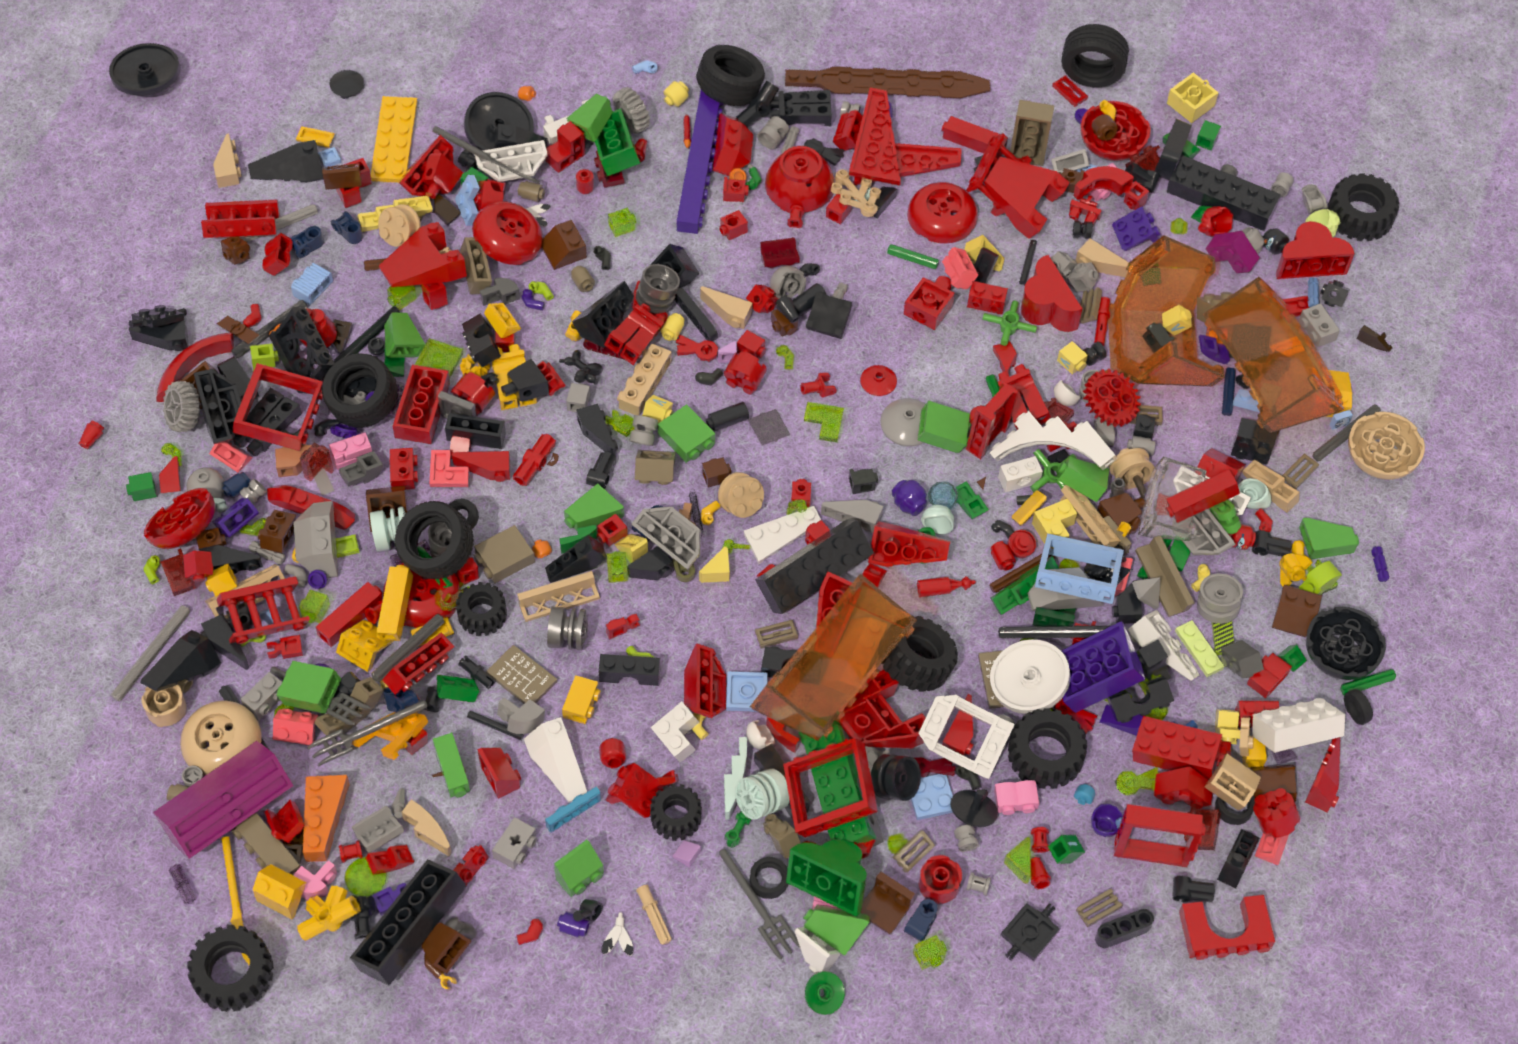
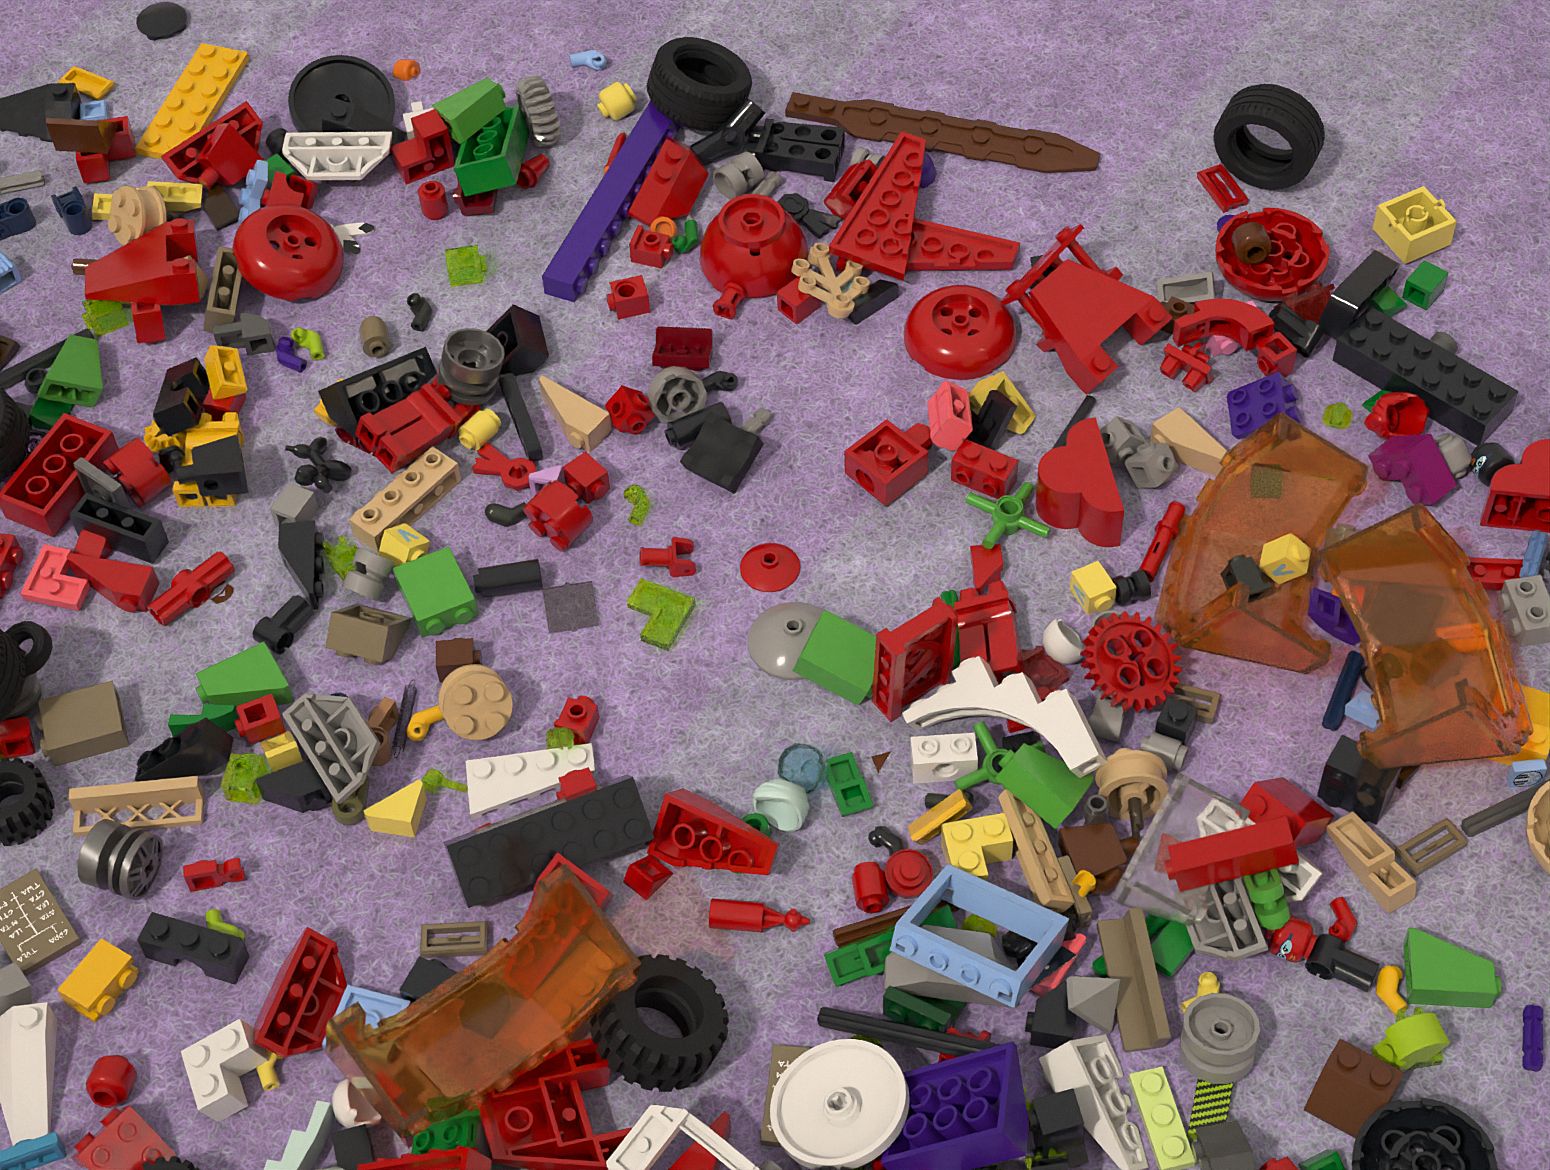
camera: 20 degrees right, 5 degrees down
(439, 356) = (119, 412): clear neon green plate -> none
(477, 152) = (291, 135): dark grey piece -> none
(531, 191) = (352, 201): dark tan brick -> none
(541, 548) = (147, 726): orange piece -> none
(552, 377) = (259, 469): red hips -> none
(564, 245) = (367, 284): reddish brown slope -> none
(667, 779) = (181, 1147): red slope -> none
(782, 324) = (651, 450): reddish brown brick -> none
(787, 308) = (655, 427): black cone -> none
(862, 480) = (683, 718): pearl dark grey brick -> none
(864, 511) = (651, 767): light grey slope -> none
(909, 497) = (749, 758): dark purple hair -> none
(913, 256) = (890, 389): green axle -> none
(969, 135) = (1040, 225): red brick -> none
(1032, 131) = (1129, 229): dark tan brick -> none
(1086, 229) = (1180, 395): black wheel -> none
(1088, 305) = (1149, 511): dark tan tile -> none
(1108, 108) = (1267, 218): yellow arm -> none
(1257, 491) = (1340, 869): light aqua hair -> none
(1282, 184) = (1529, 378): light grey wheel -> none
(1293, 568) = (1366, 1010): yellow brick -> none

